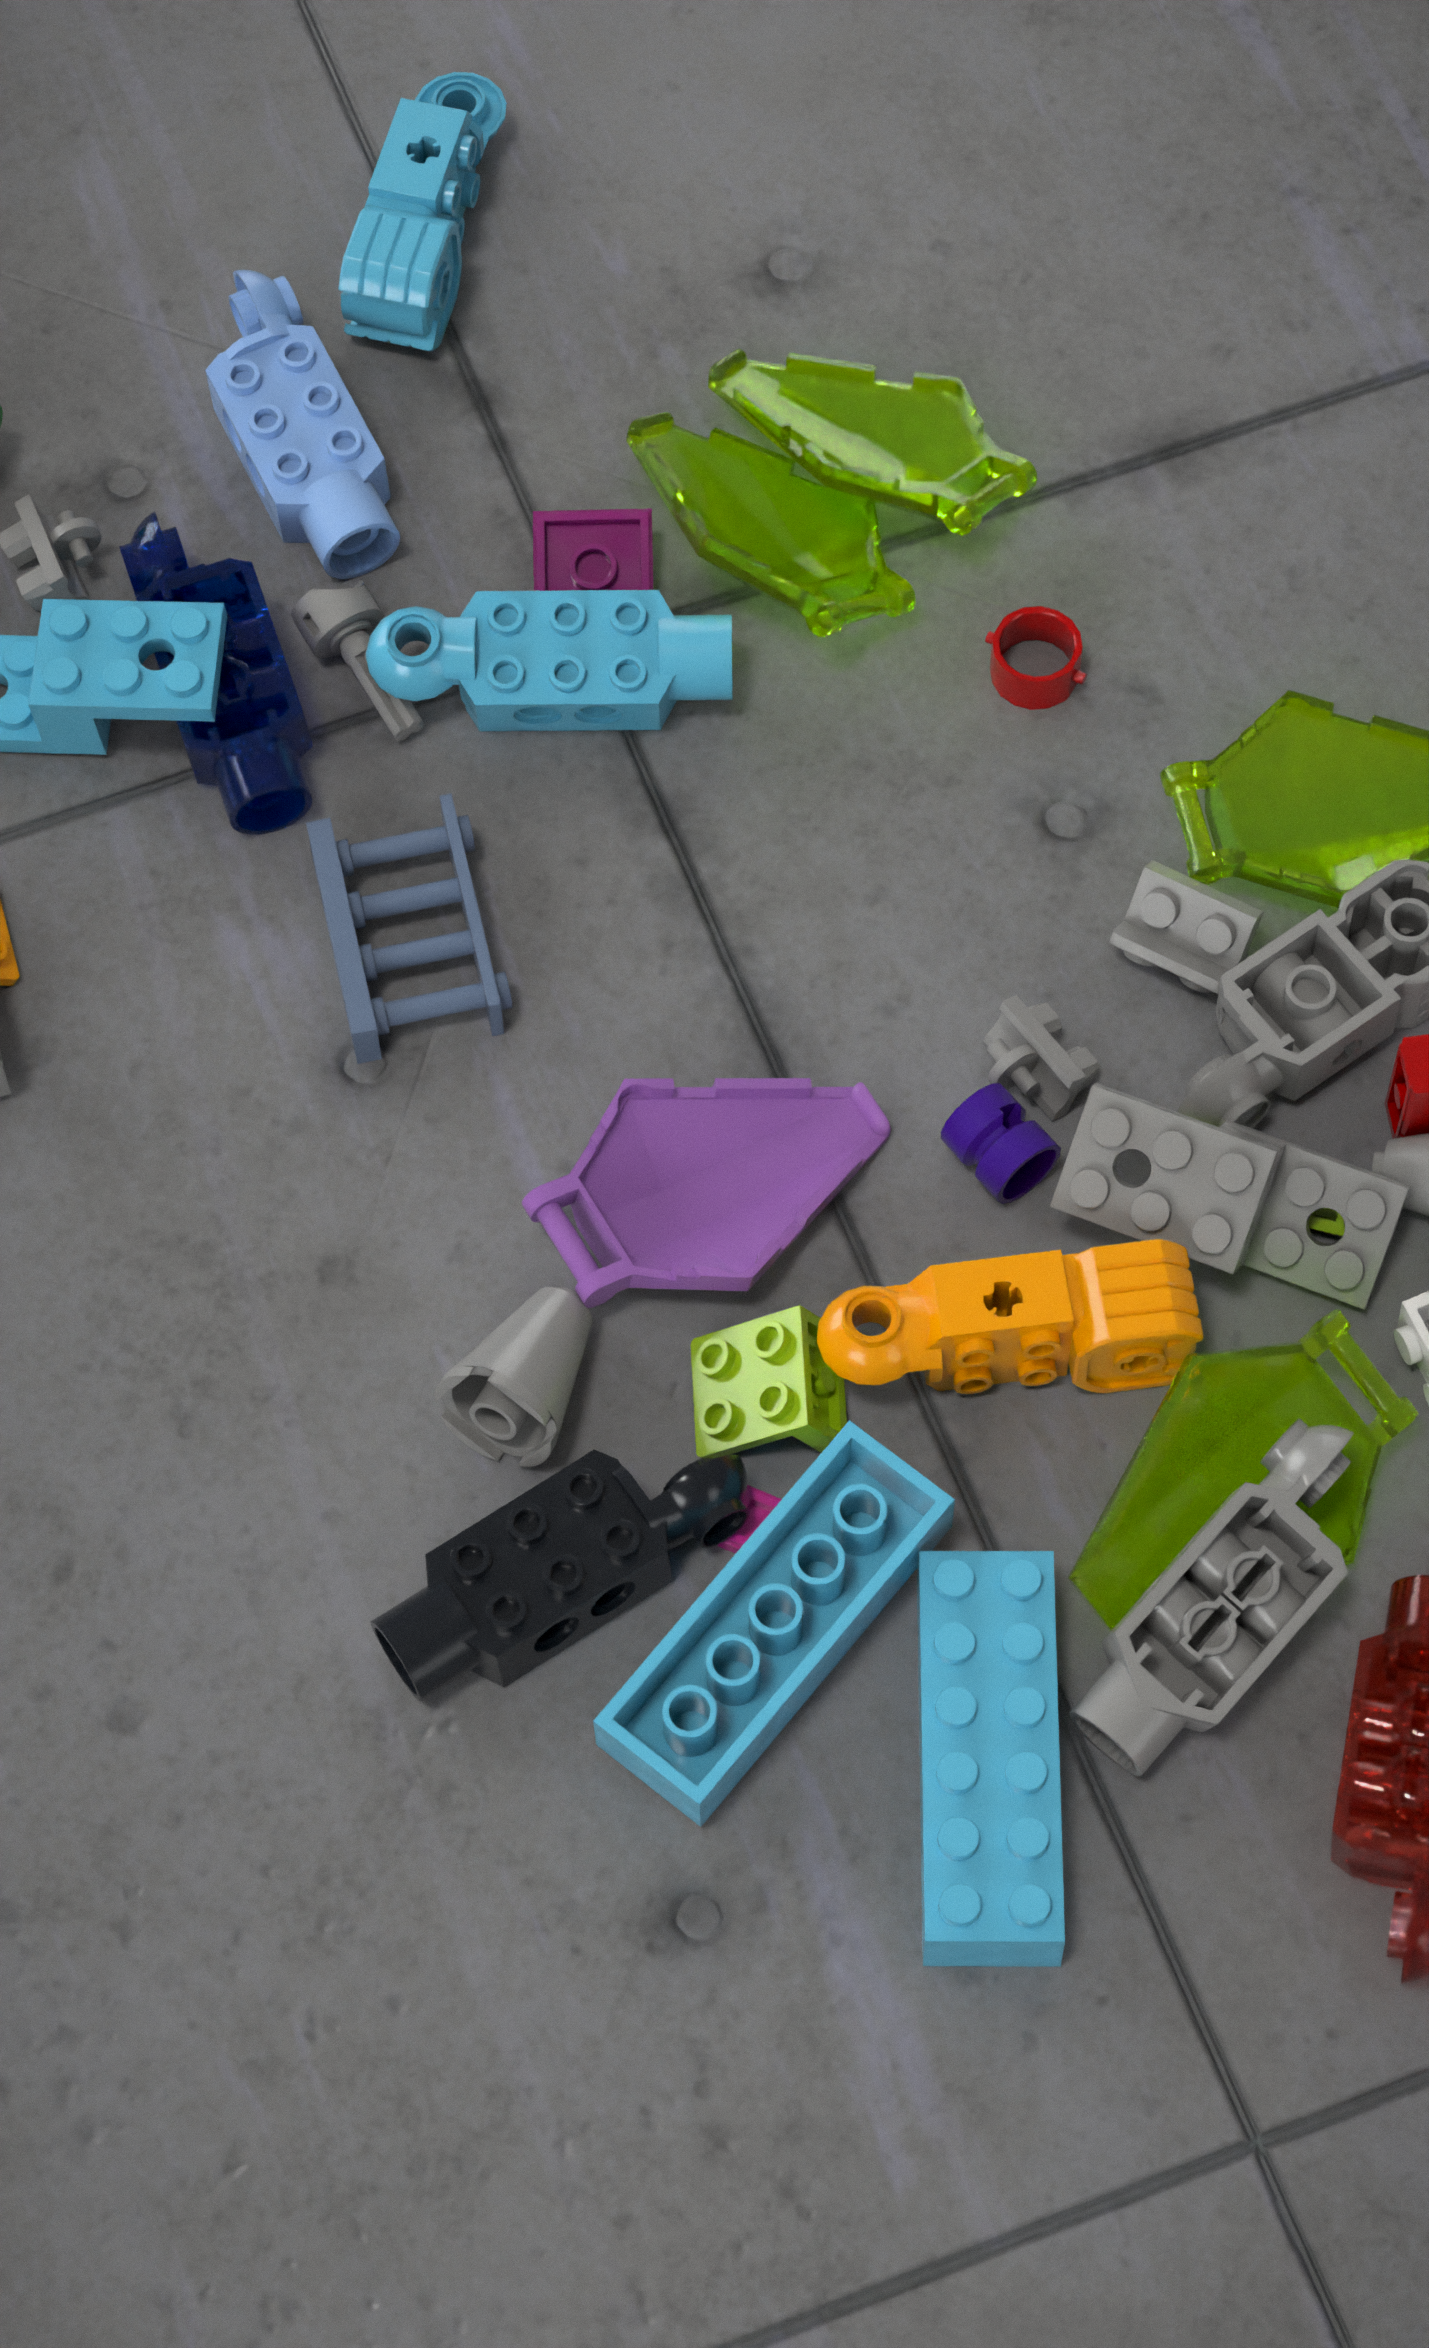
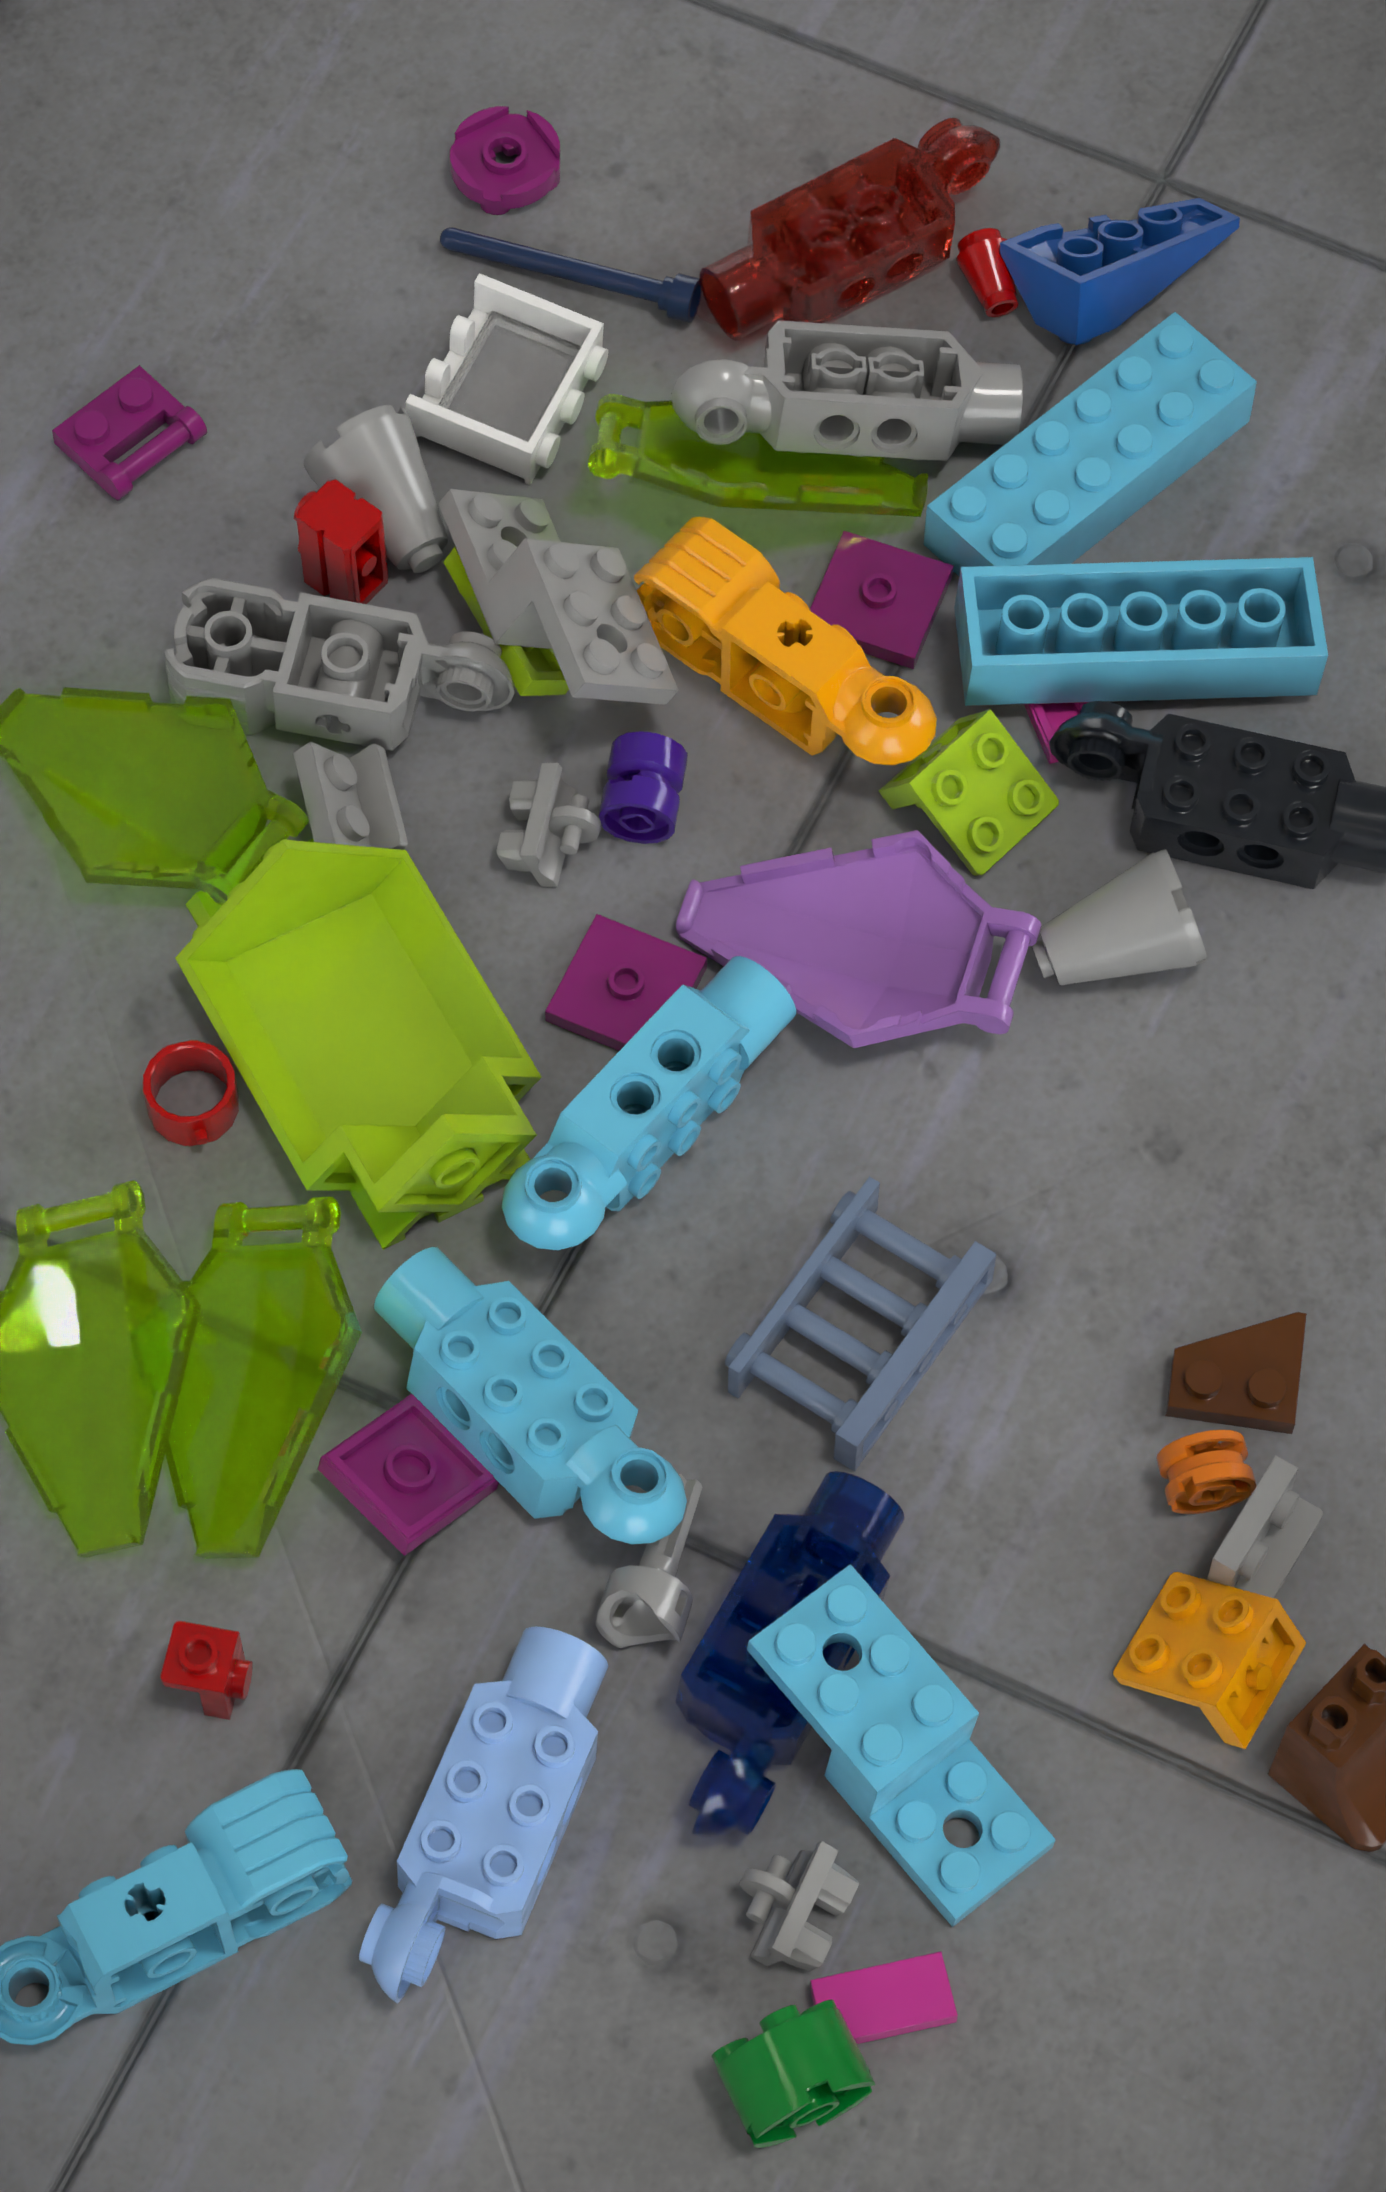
camera: 135 degrees left, 0 degrees up
(51, 1038) = (1206, 1473): none -> orange wheel
(103, 1150) = (1241, 1376): none -> reddish brown wing
(564, 343) = (208, 1663): none -> red bracket
(708, 905) = (647, 1104): none -> medium azure brick
(842, 1009) = (620, 982): none -> magenta plate
(964, 790) = (363, 1031): none -> lime panel
(1022, 1483) = (882, 597): none -> magenta plate
(1188, 1974) = (1103, 274): none -> blue wedge
(1278, 1868) = (987, 272): none -> red cone

